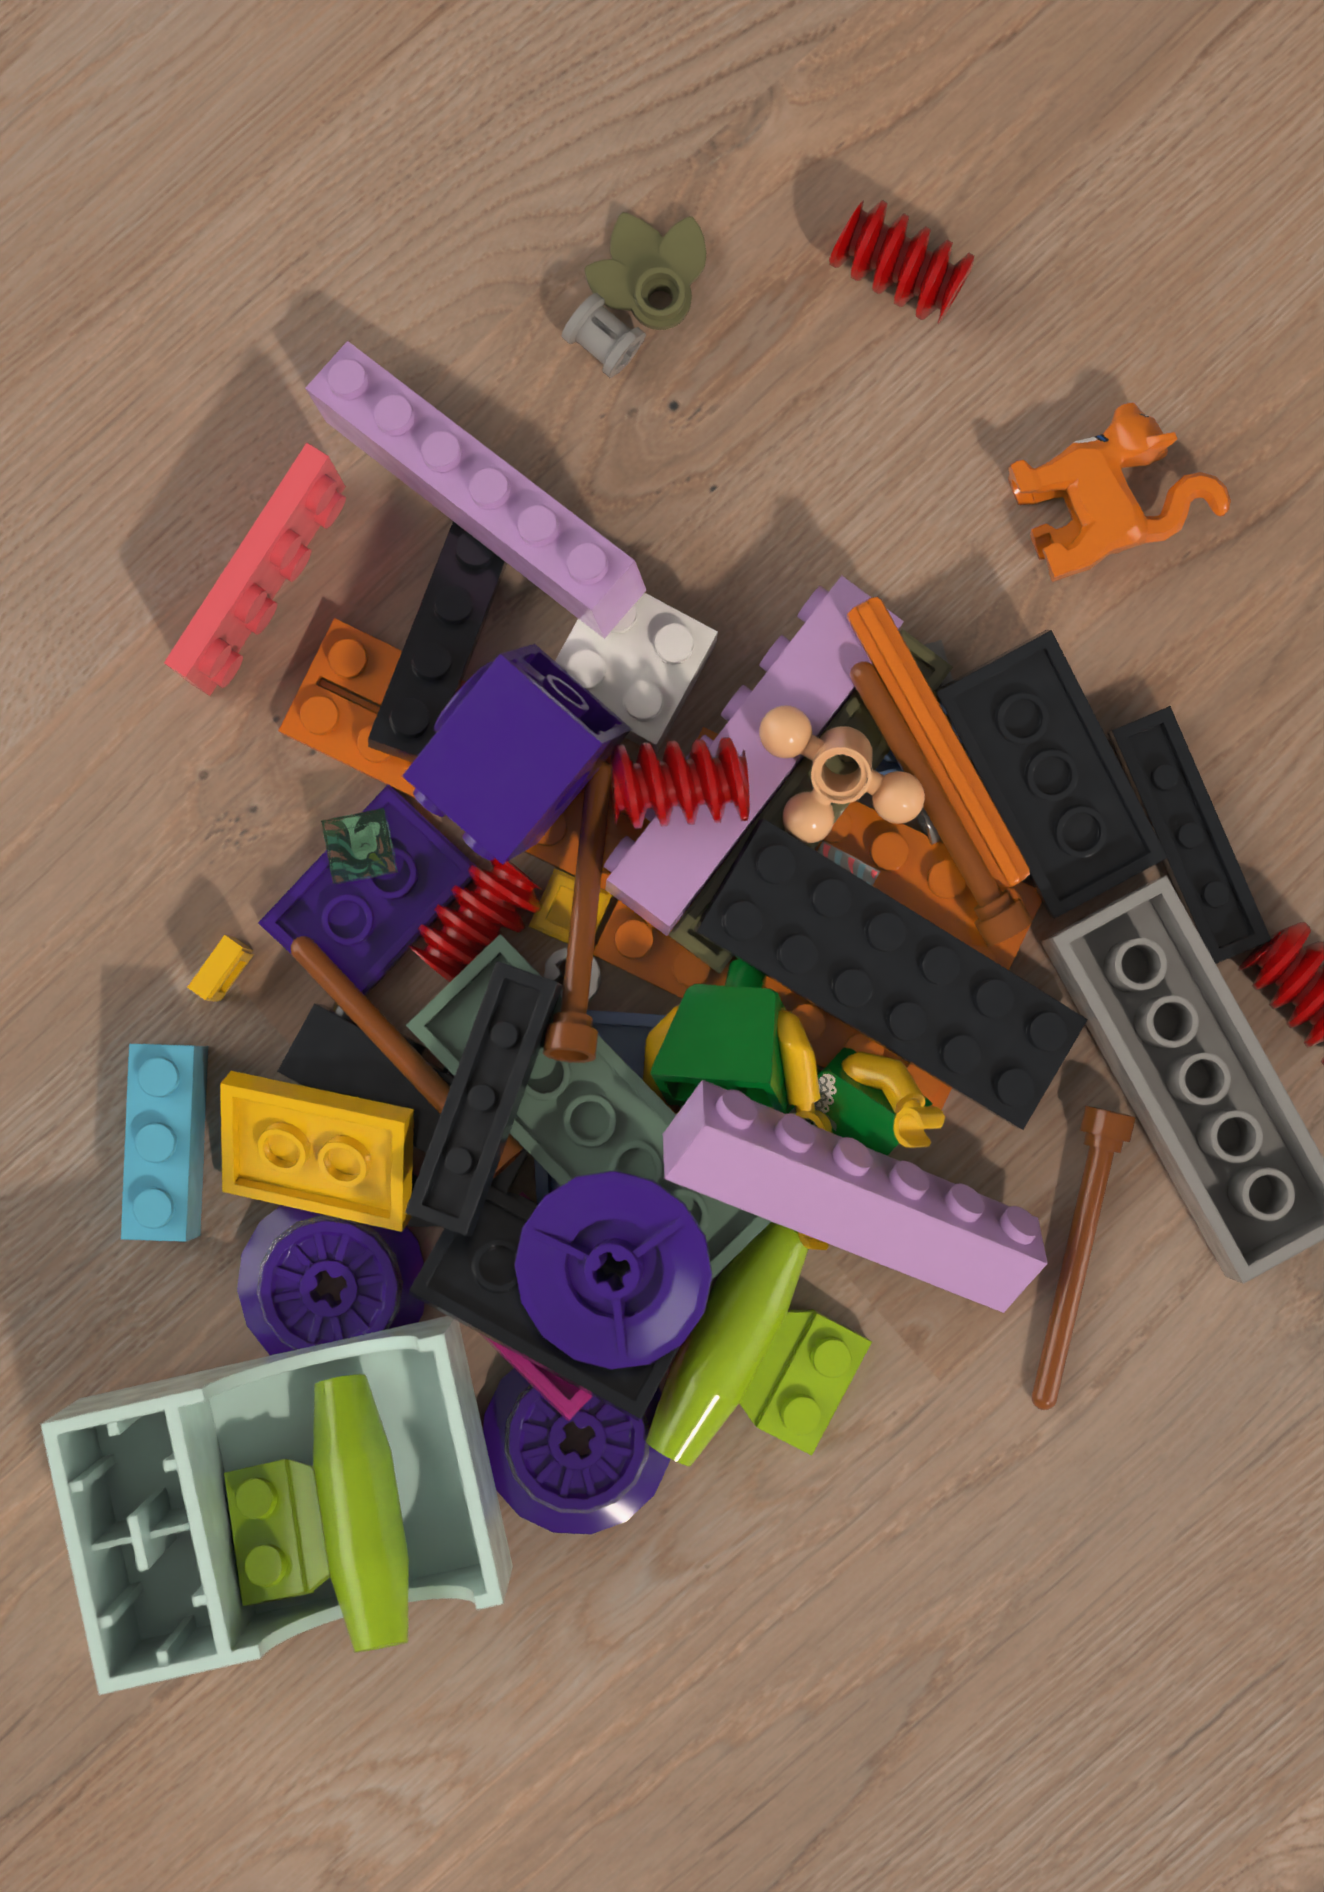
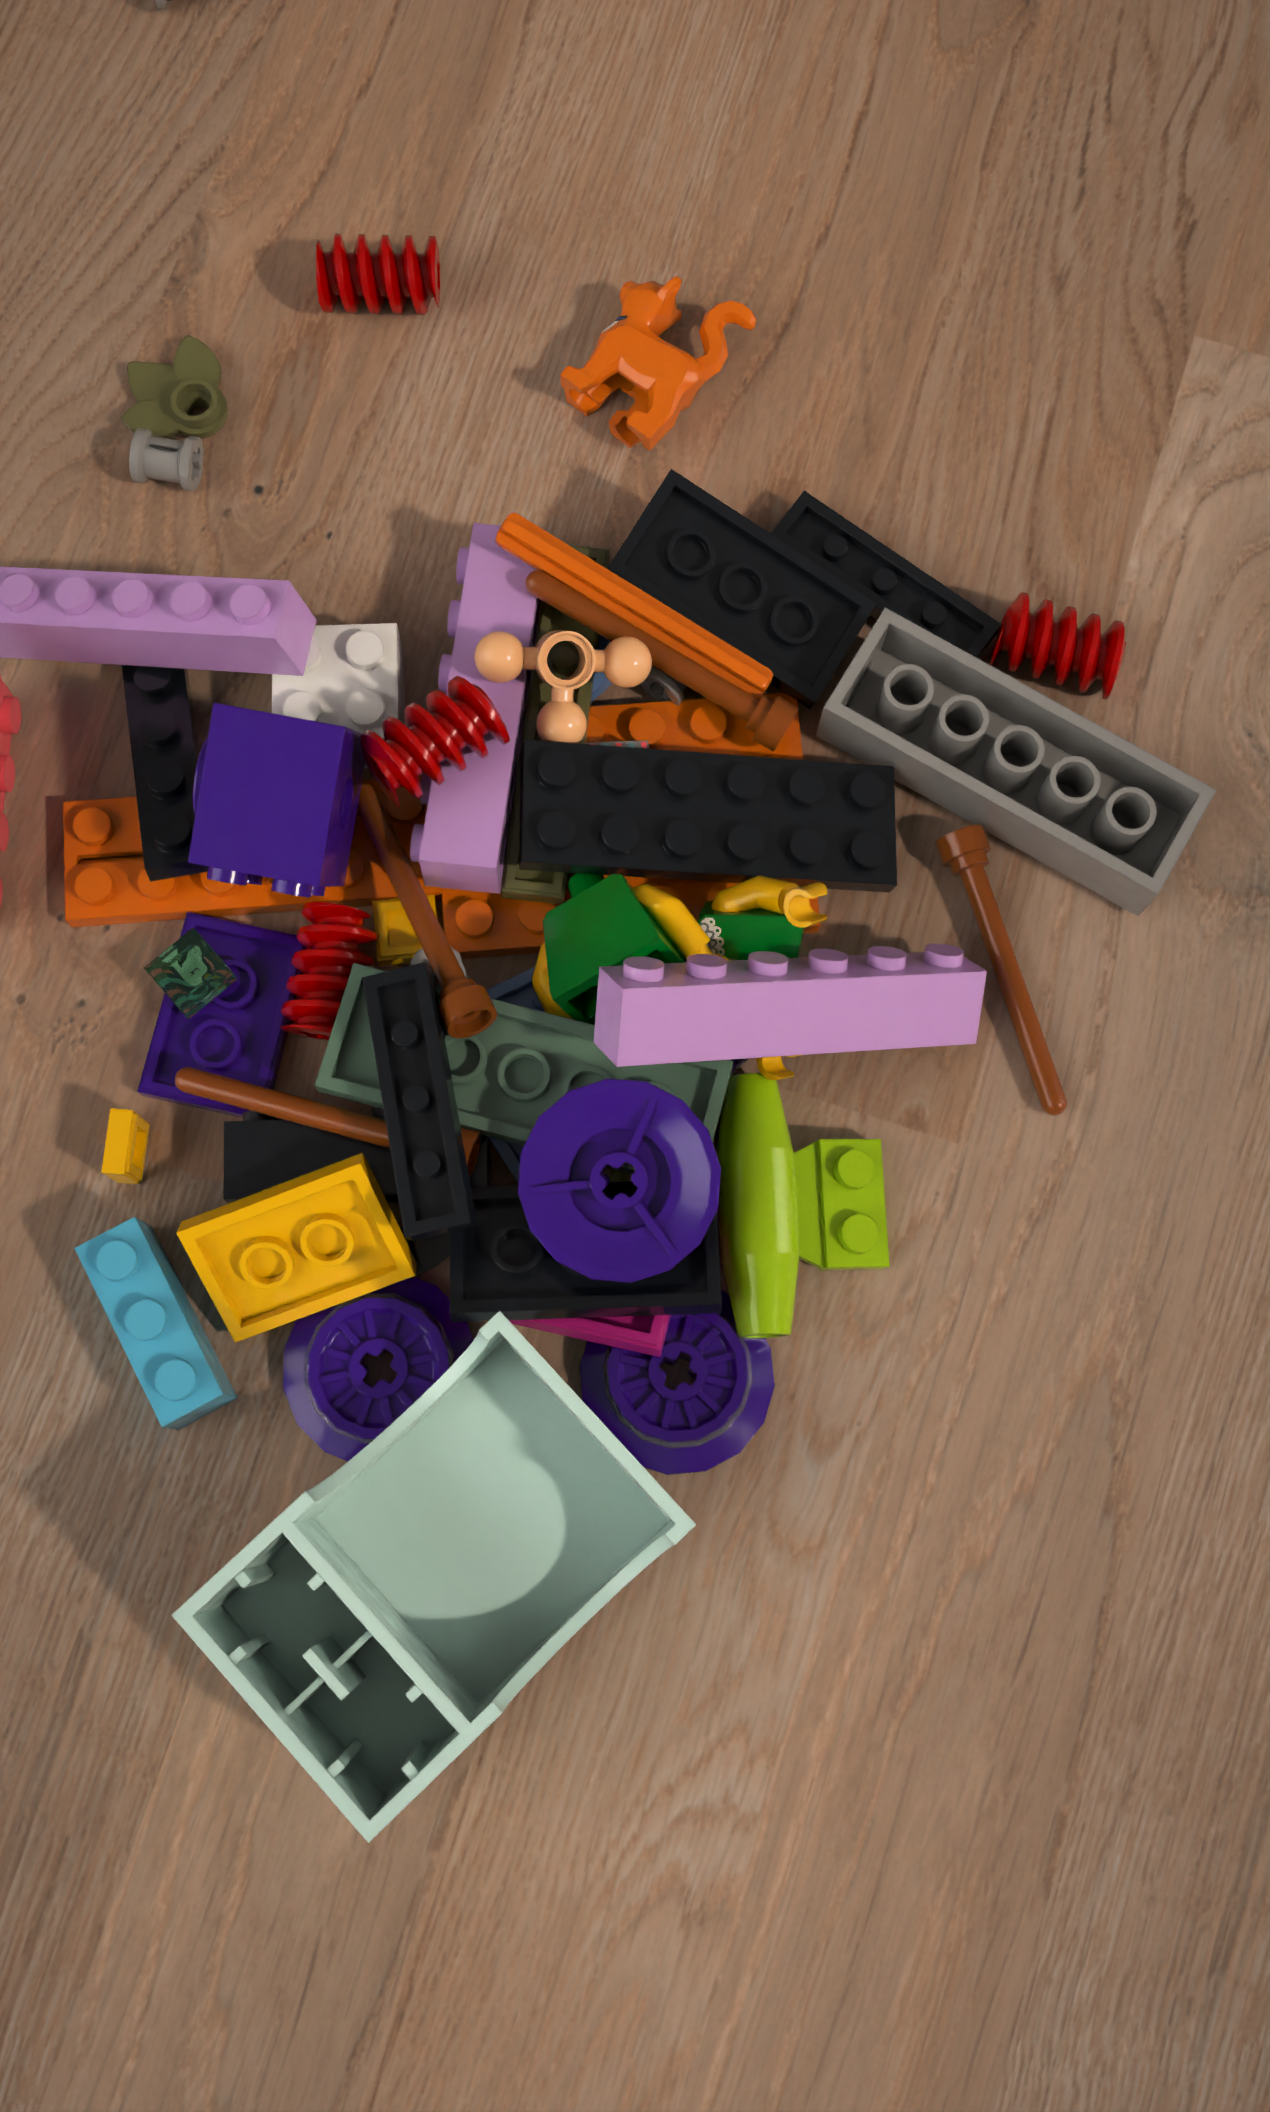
camera: 35 degrees left, 10 degrees down
(329, 1520) = (501, 1559): lime plate -> none

